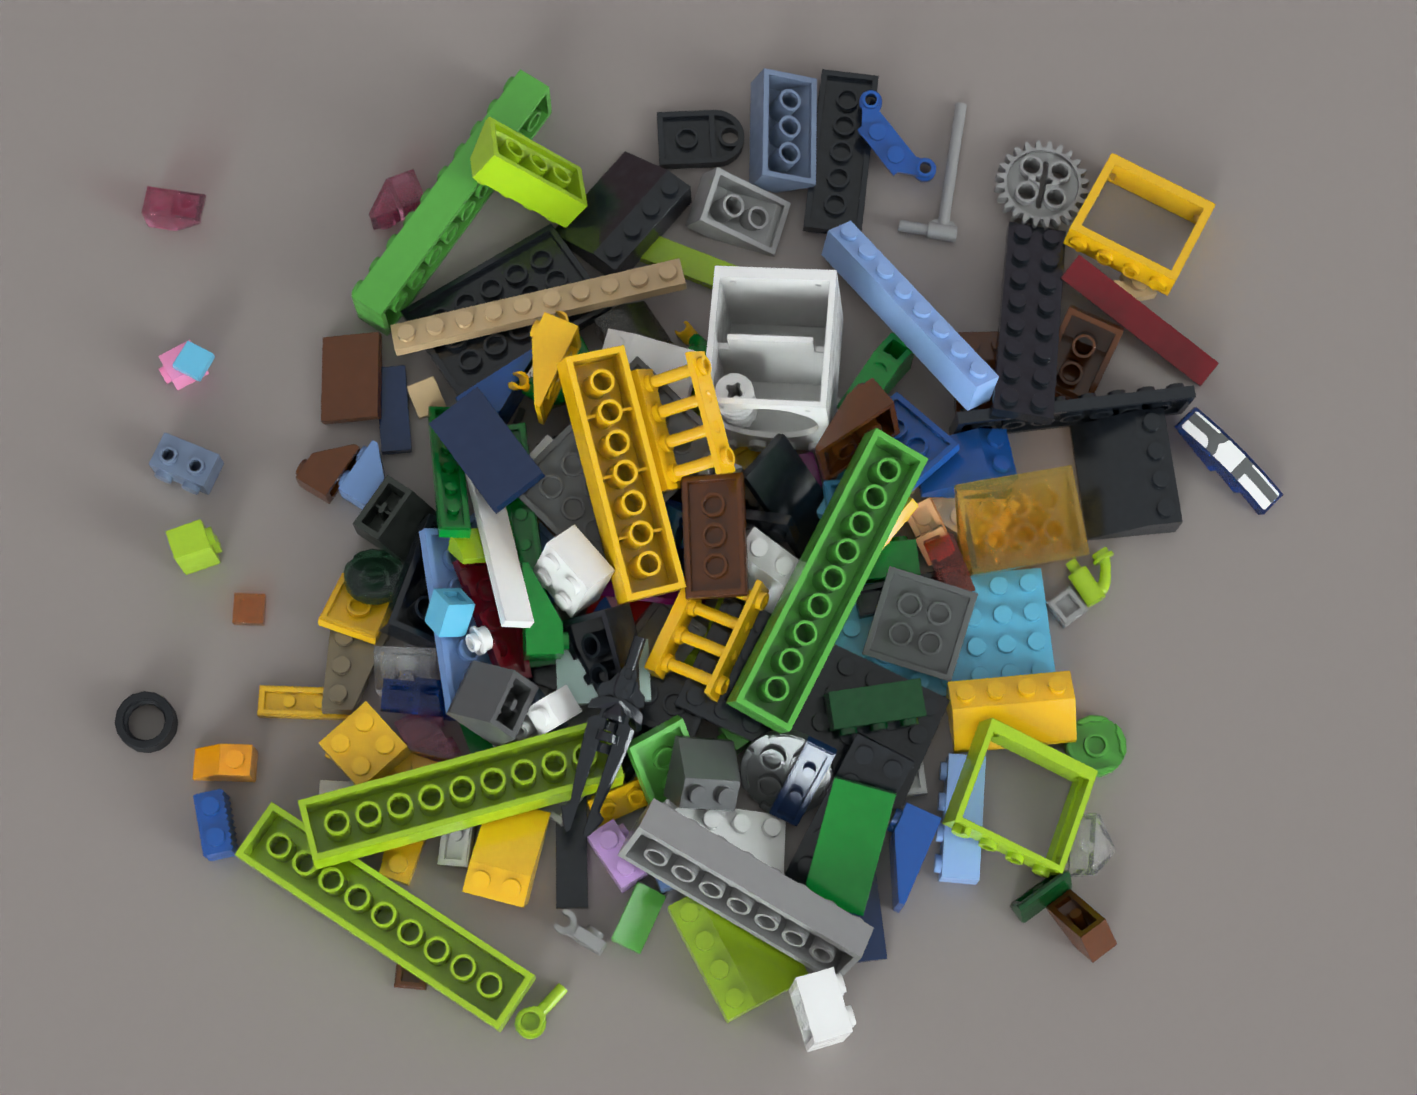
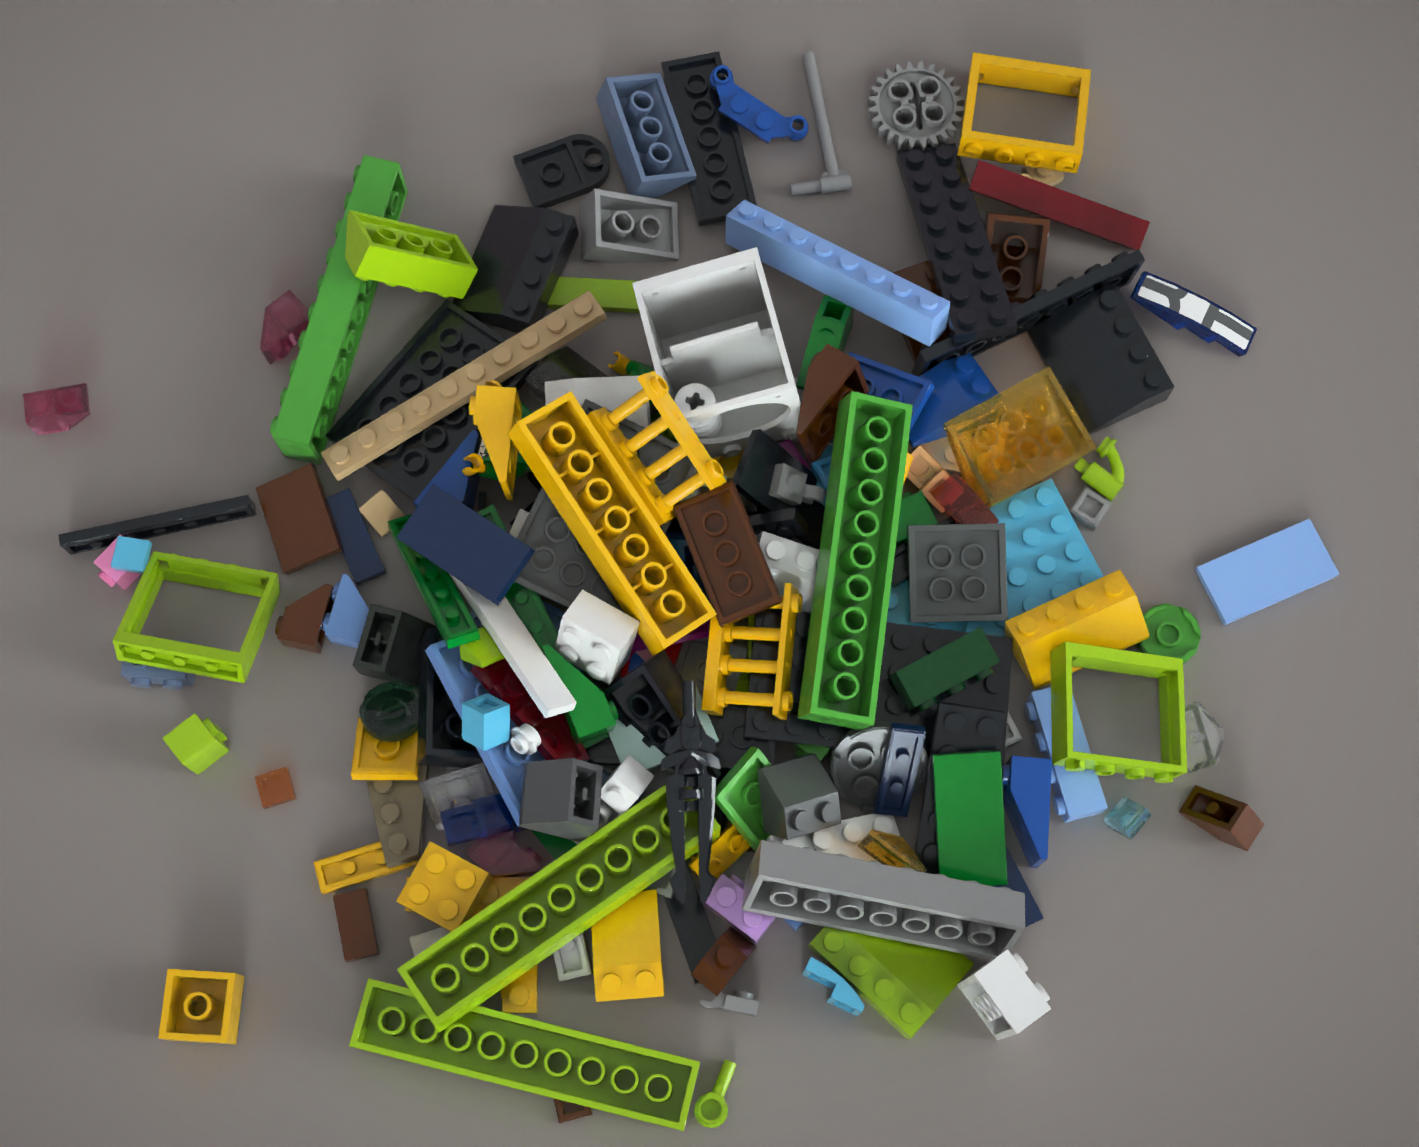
camera: 15 degrees left, 0 degrees up
(120, 777) = (201, 1006): none -> yellow brick
(132, 703) = (188, 924): black tyre -> none
(209, 466) = (188, 657): none -> lime window
(215, 824) = (317, 1021): blue brick -> none
(226, 763) = (305, 954): light orange slope -> none
(227, 341) = (159, 524): none -> black tile
(277, 753) = (356, 925): none -> reddish brown tile
(587, 895) = (723, 960): none -> reddish brown slope
(638, 917) = (781, 964): bright green slope -> none
(679, 960) = (841, 994): none -> medium azure slope
(769, 849) = (890, 850): none -> clear yellow slope
(796, 496) = (790, 486): none -> light grey plate
(995, 896) = (1127, 818): none -> clear light blue plate
(1041, 896) = (1171, 801): dark green slope -> none
(1208, 719) = (1266, 572): none -> light blue tile

